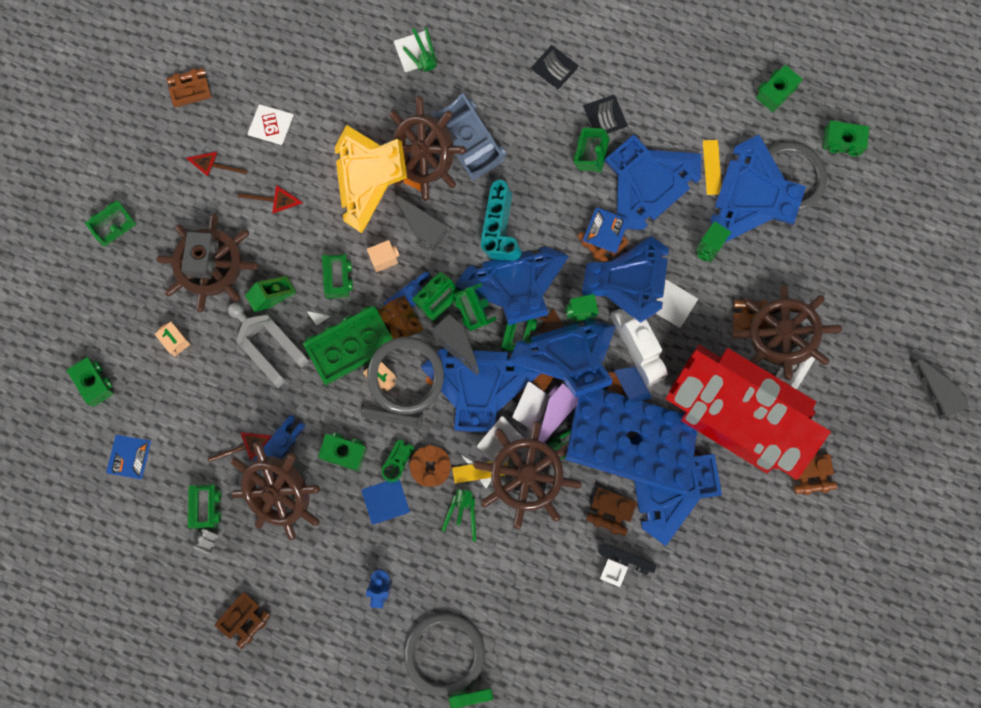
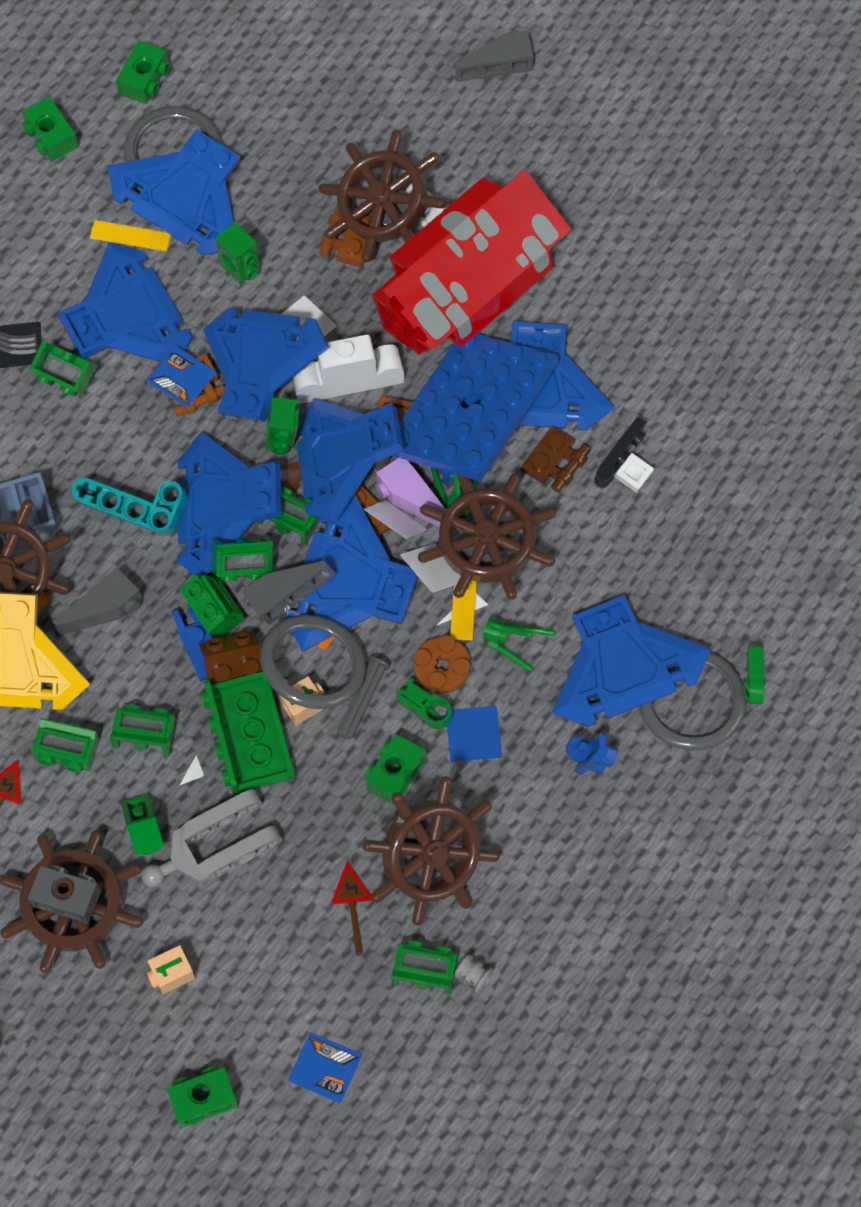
camera: 75 degrees left, 10 degrees down
(237, 615) = (585, 951): reddish brown plate -> none
(282, 441) = (366, 864): blue hinge -> none
(314, 229) = (65, 745): none -> green window
(383, 255) = (132, 663): light nougat brick -> none
(457, 598) = (624, 664): none -> blue plate
(633, 384) = (399, 391): blue sticker -> none
(818, 467) = (581, 214): dark orange plate -> none

